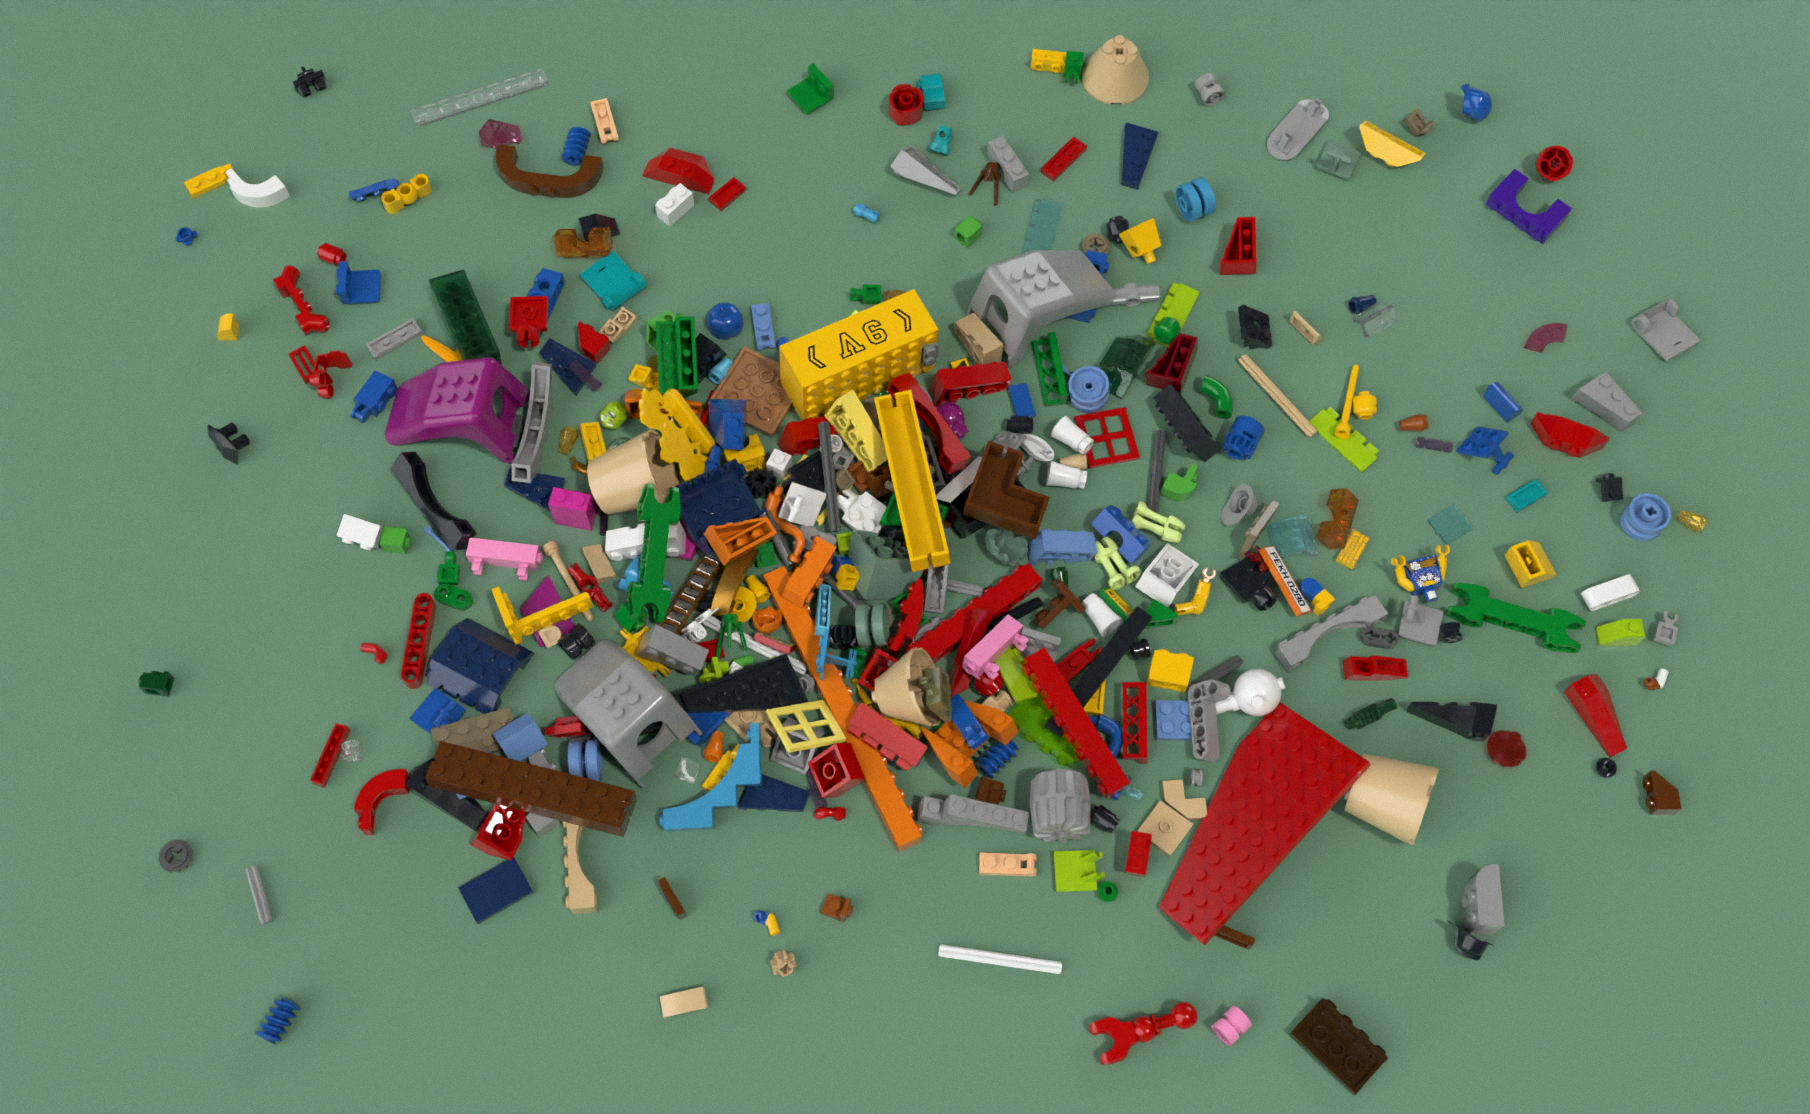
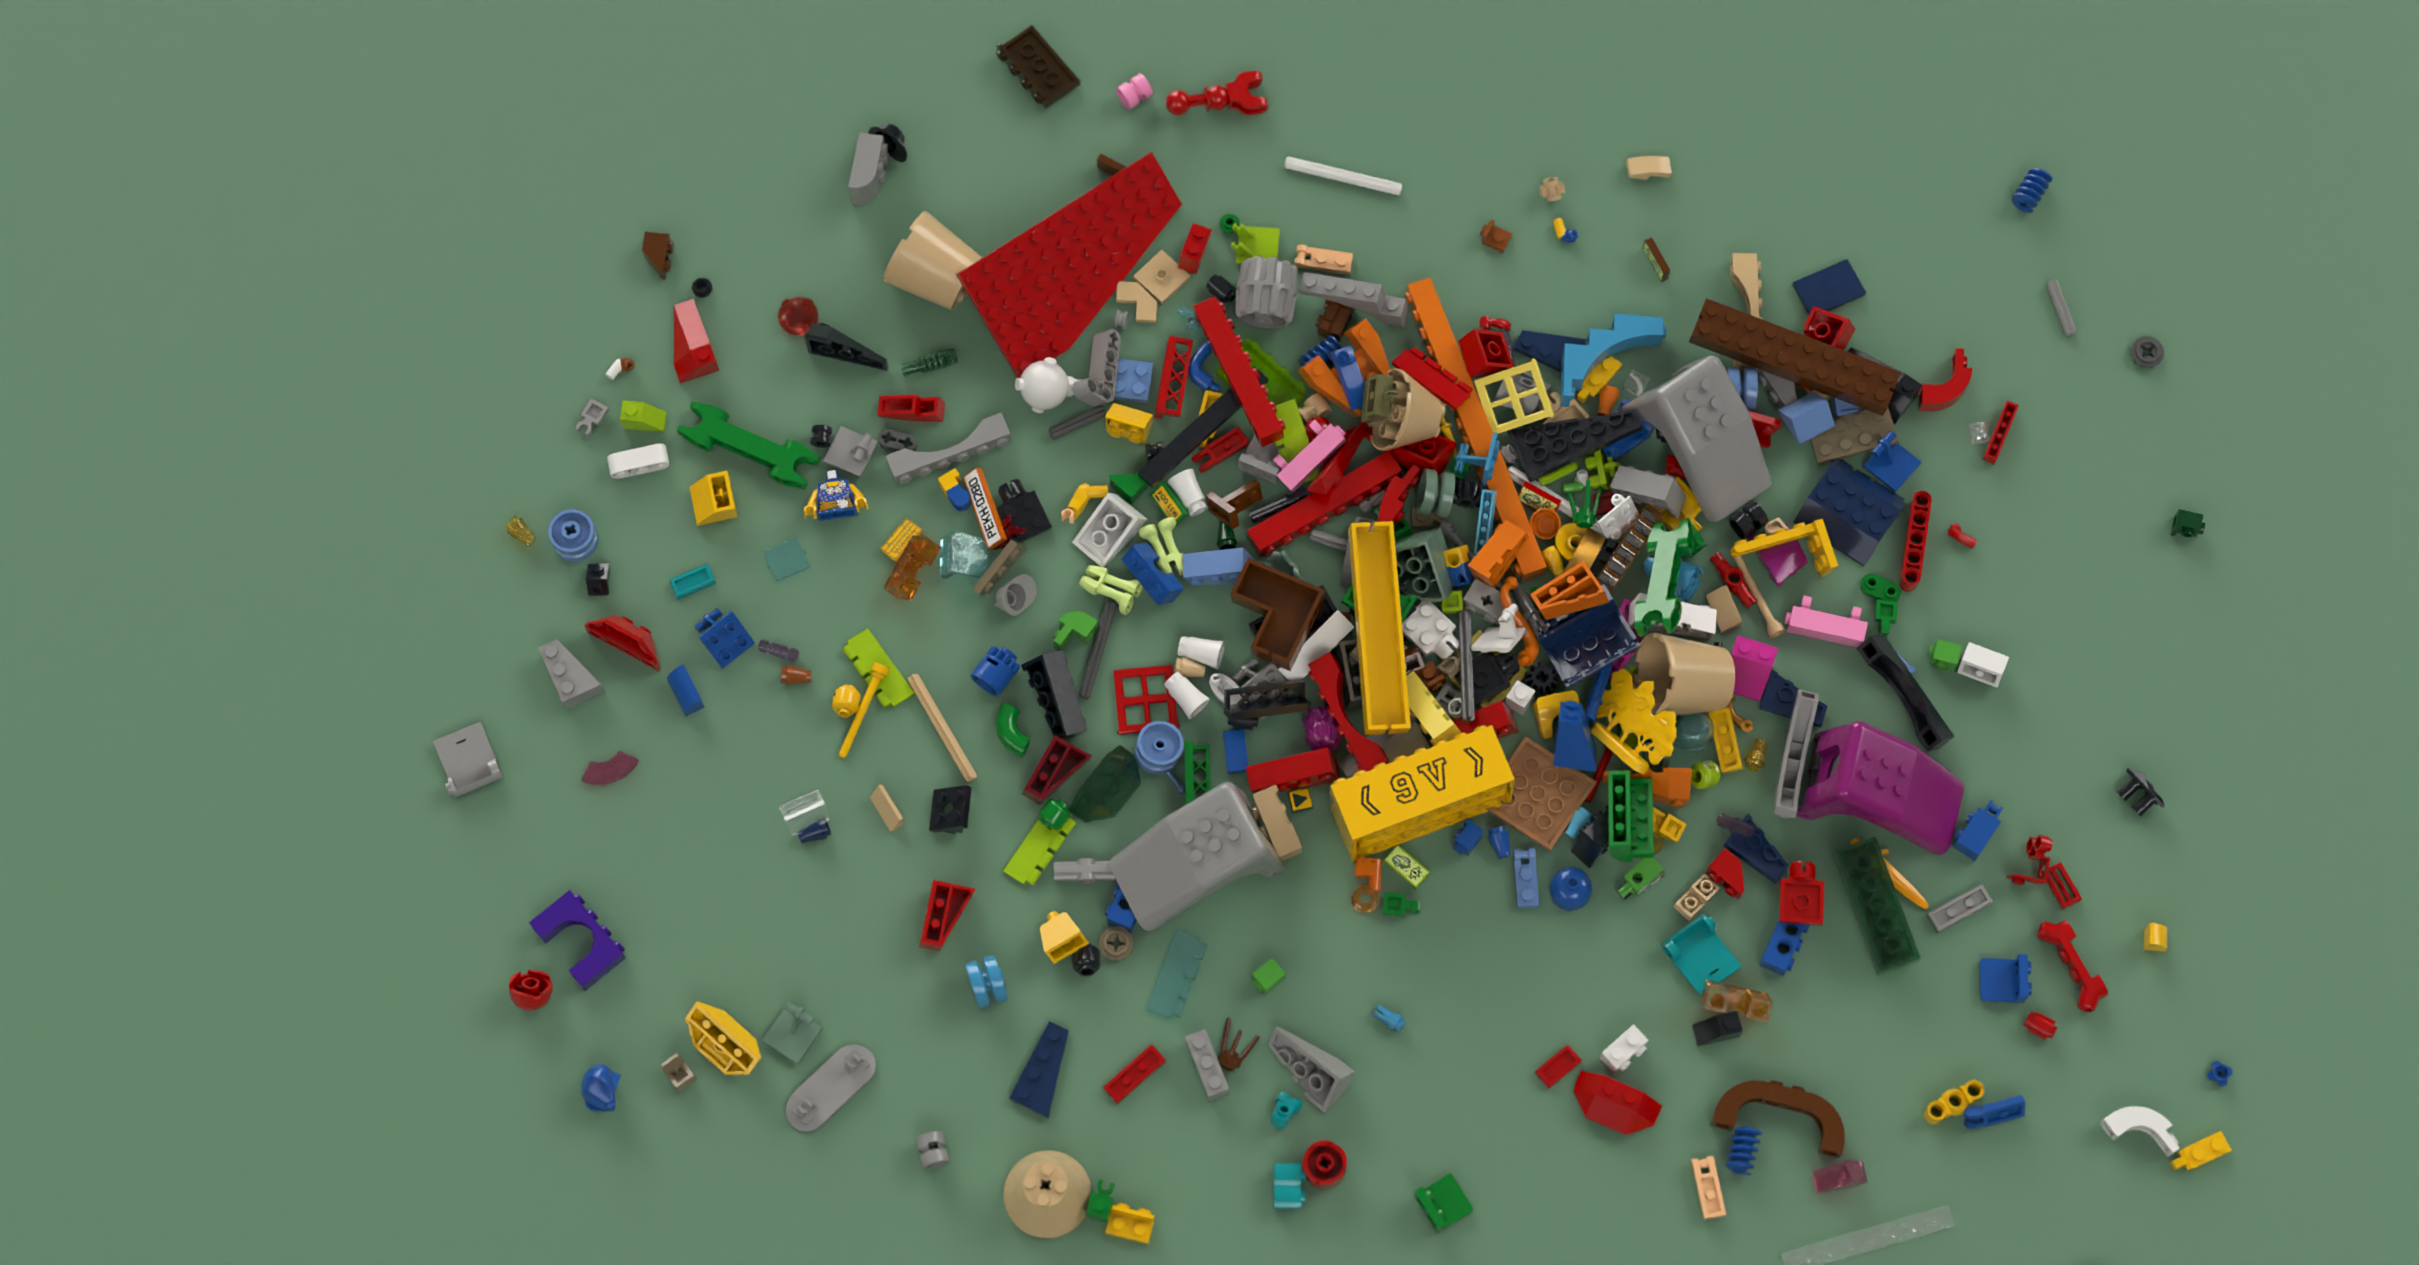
camera: 170 degrees left, 5 degrees up
(1002, 428) = (1268, 707): none -> black fence

